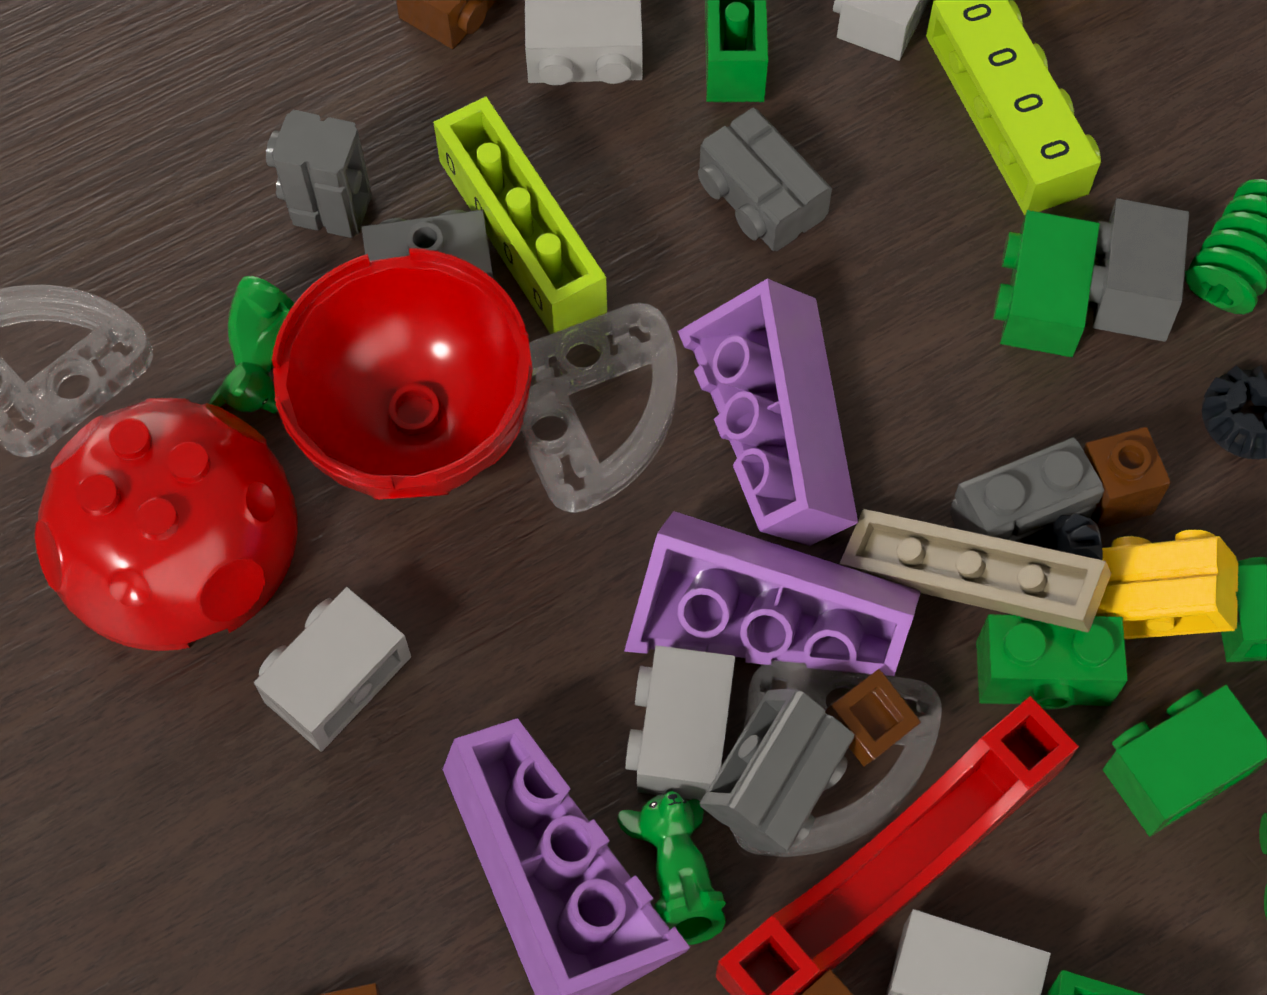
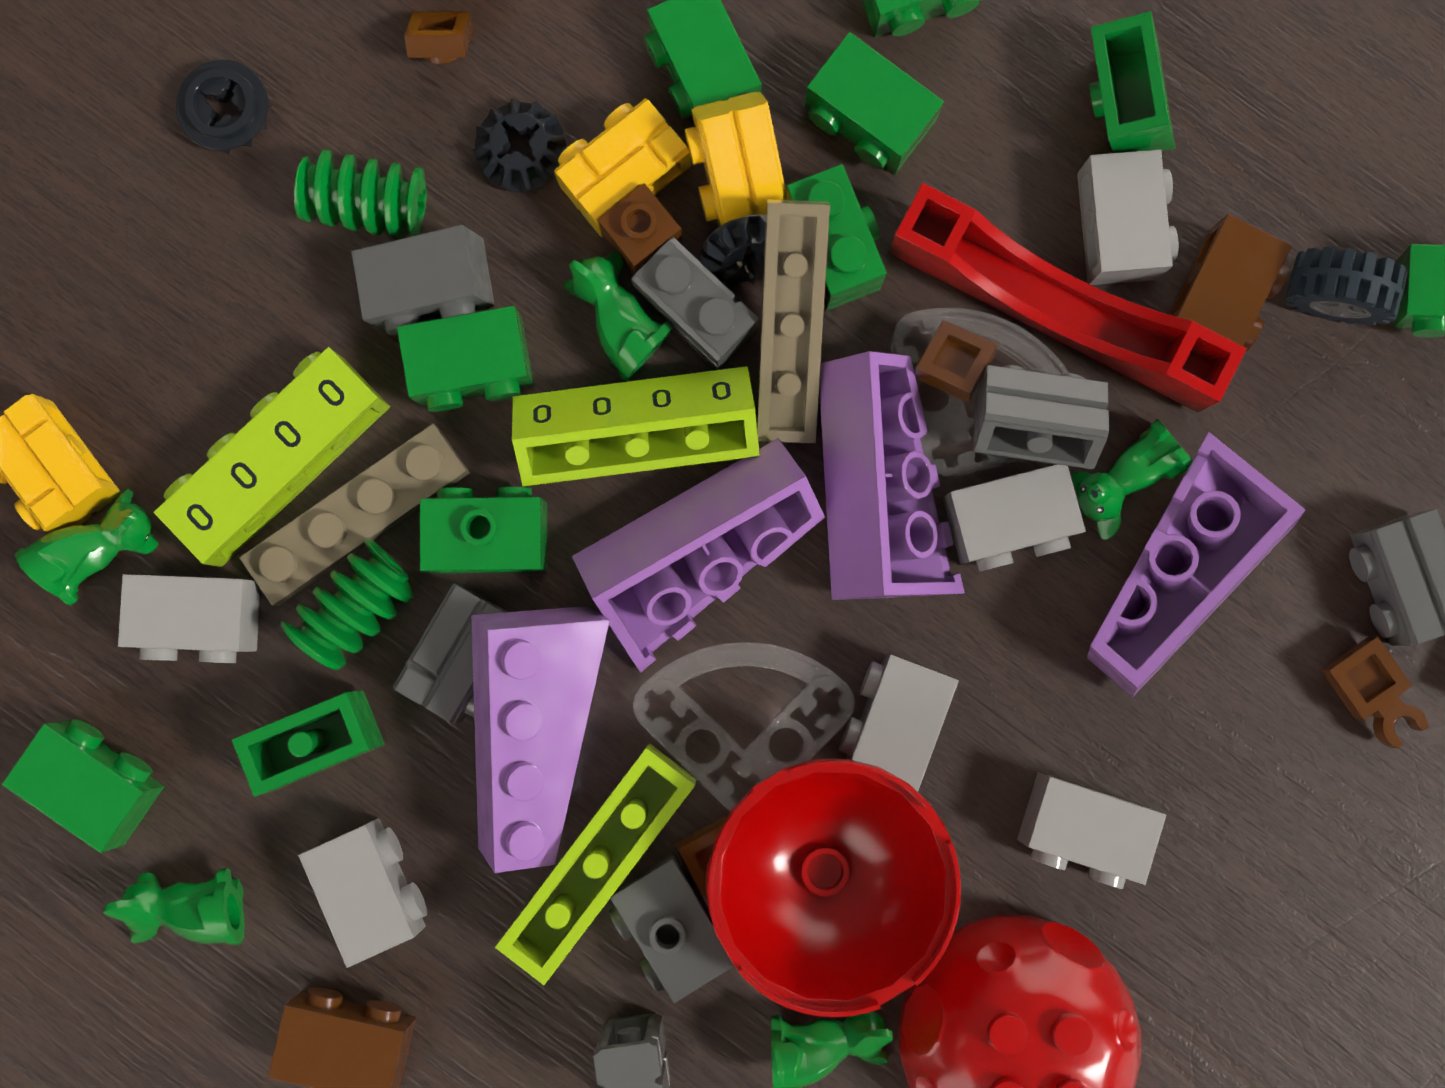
camera: 110 degrees left, 20 degrees up
(524, 530) = (900, 718): none -> light grey brick
(683, 197) = (530, 721): none -> medium lavender wedge
(846, 107) = (350, 608): none -> green piece
(867, 238) = (483, 533): none -> green brick
(921, 397) = (634, 426): none -> lime brick
(931, 152) = (352, 513): none -> dark tan plate
(1025, 427) = (621, 324): none -> green animal
(1206, 483) = (630, 152): none -> yellow brick

